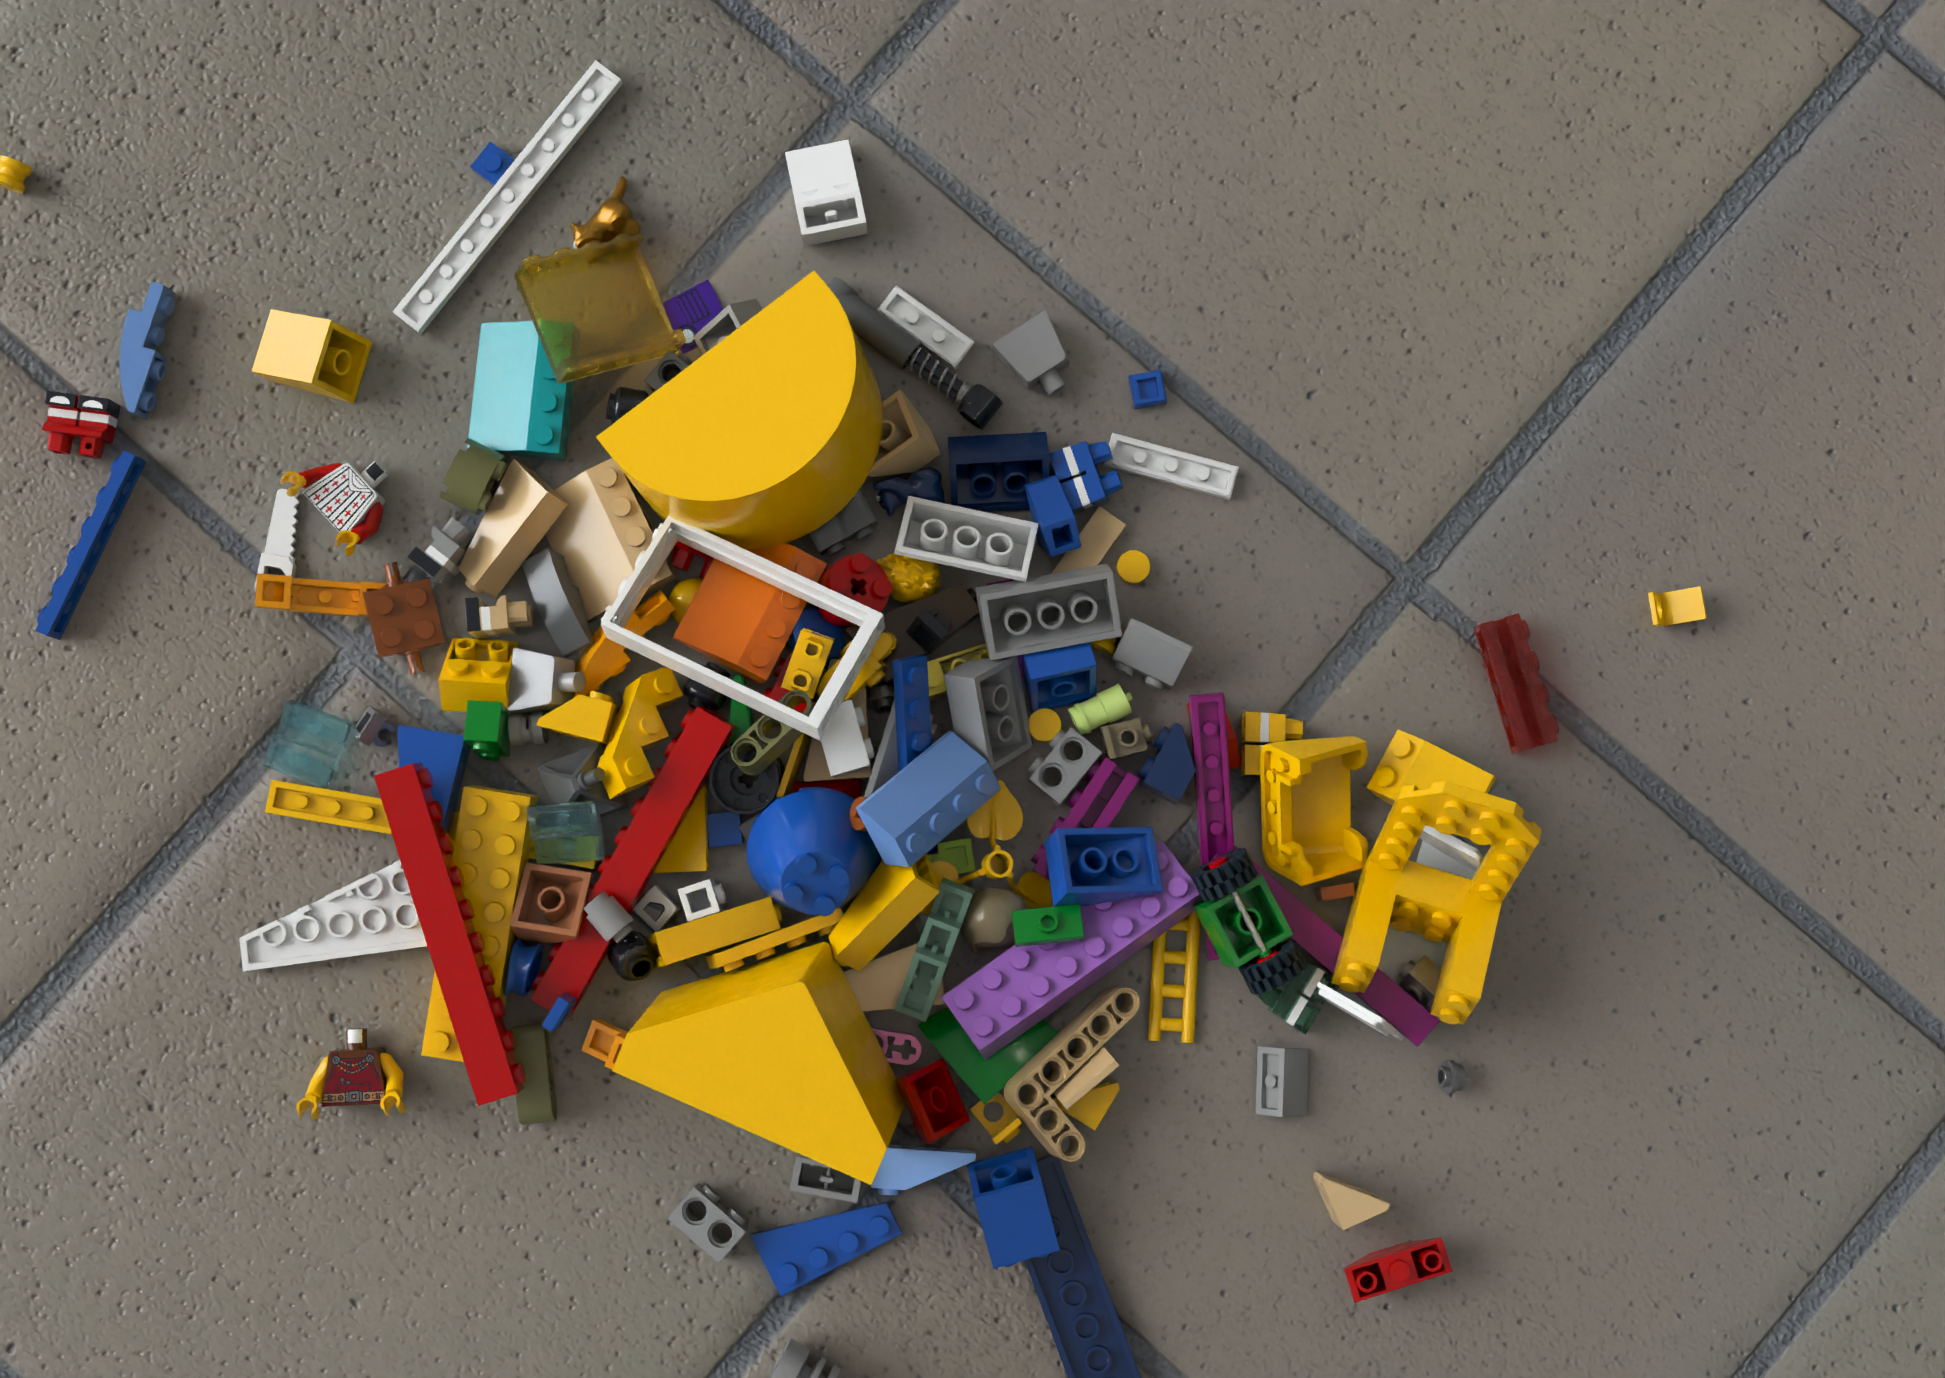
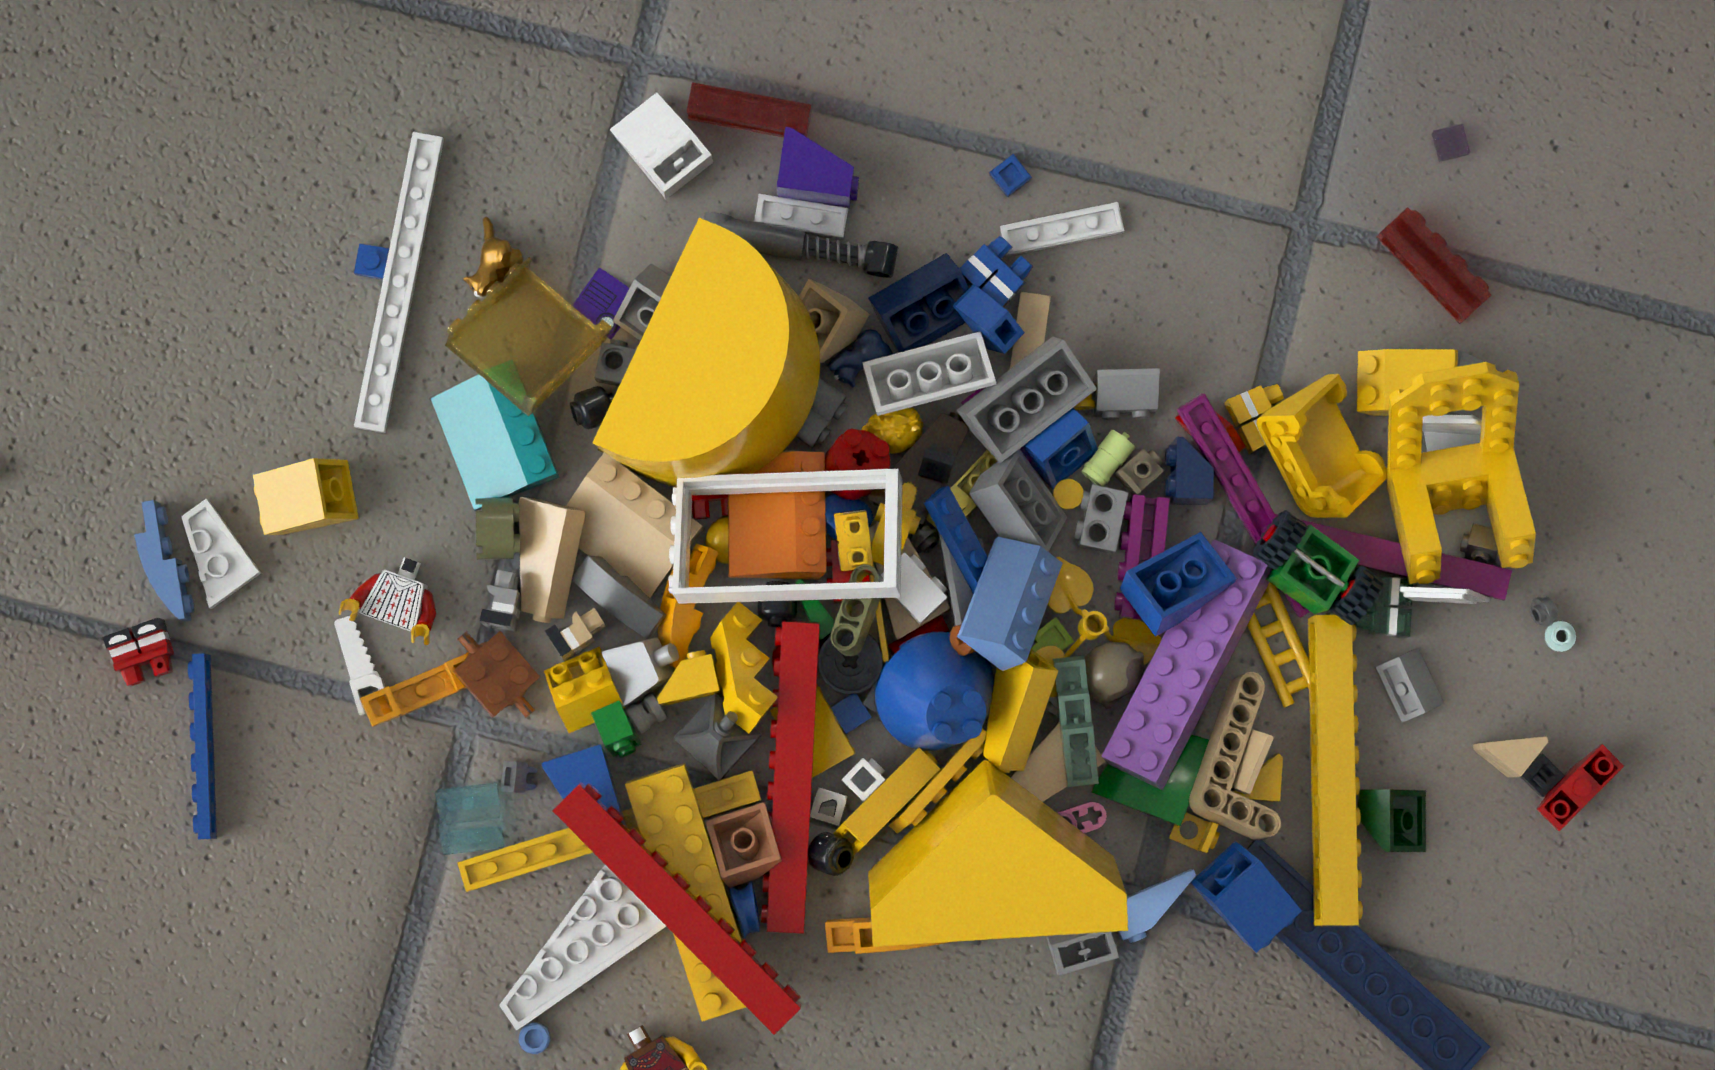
camera: 25 degrees left, 0 degrees up
(202, 368) = (218, 554): none -> white wing
(258, 987) = (534, 1038): none -> medium blue tile
(538, 1098) = (814, 1011): olive beam -> none
(559, 1012) = (797, 929): blue tile -> none
(566, 832) = (727, 779): clear light blue slope -> none
(608, 917) = (799, 830): light grey brick -> none
(703, 1229) = (1002, 1045): light grey brick -> none
(816, 1246) = (1101, 1013): blue wing -> none
(926, 201) = (747, 110): none -> clear red brick
(932, 1100) = (1136, 845): red slope -> none
(956, 290) = (814, 173): none -> dark purple slope
(1033, 354) = (902, 193): light grey torso -> none
(1047, 925) = (1158, 653): green plate -> none
(1133, 567) = (1074, 327): yellow tile -> none
(1162, 1129) = (1333, 772): none -> yellow brick
(1199, 1205) = (1395, 818): none -> dark green slope
(1335, 891) = (1374, 509): dark orange tile -> none
(1367, 1237) = (1542, 775): none -> black tile
(1445, 1105) = (1551, 640): none -> light aqua plate
(1593, 573) = (1450, 142): none -> clear purple tile
(1677, 606) = (1532, 136): yellow bracket -> none

